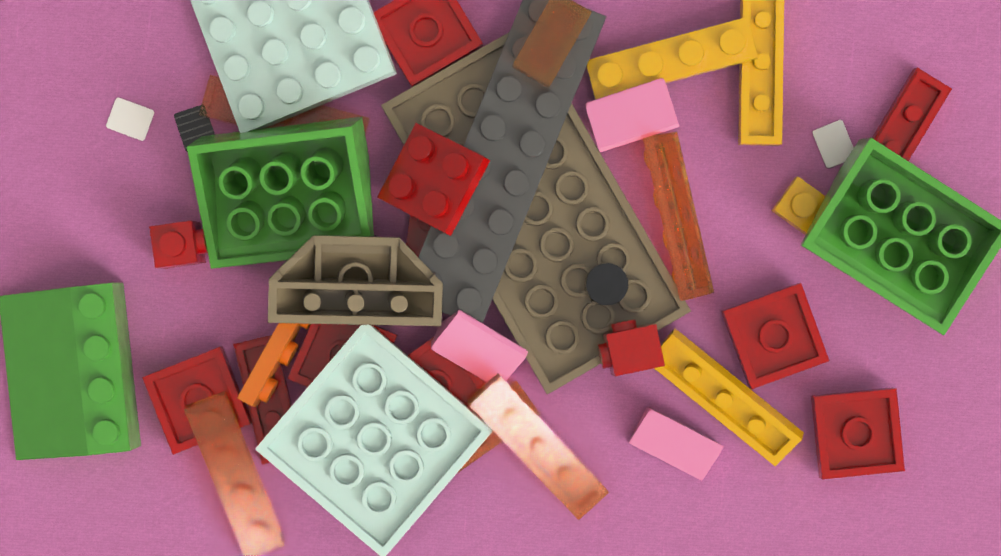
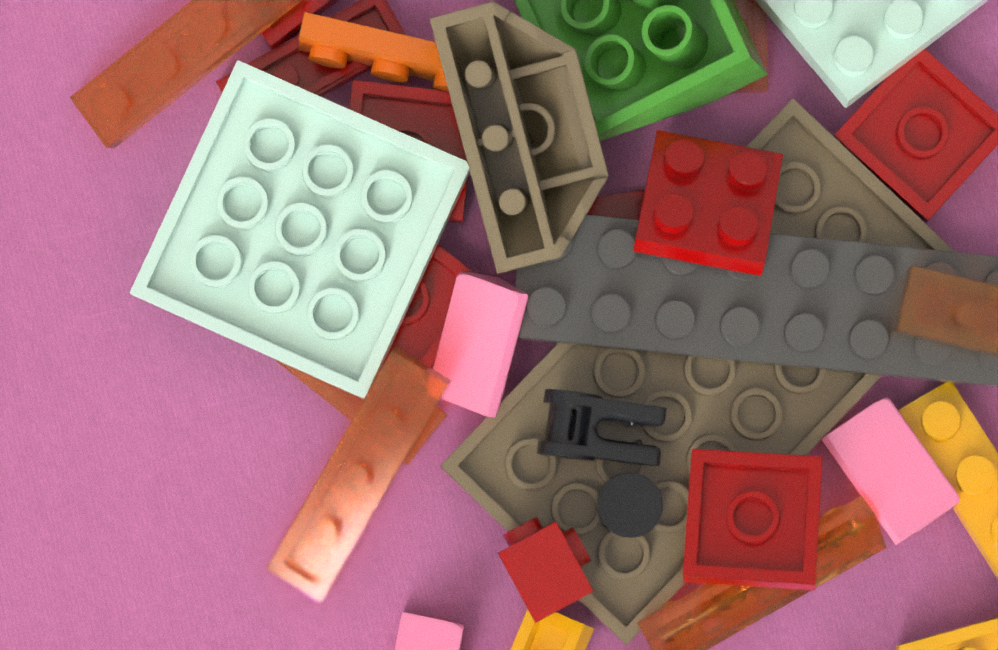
camera: 75 degrees right, 5 degrees down
(543, 294) = (583, 436): none -> black piece
(639, 211) = (753, 519): none -> red plate

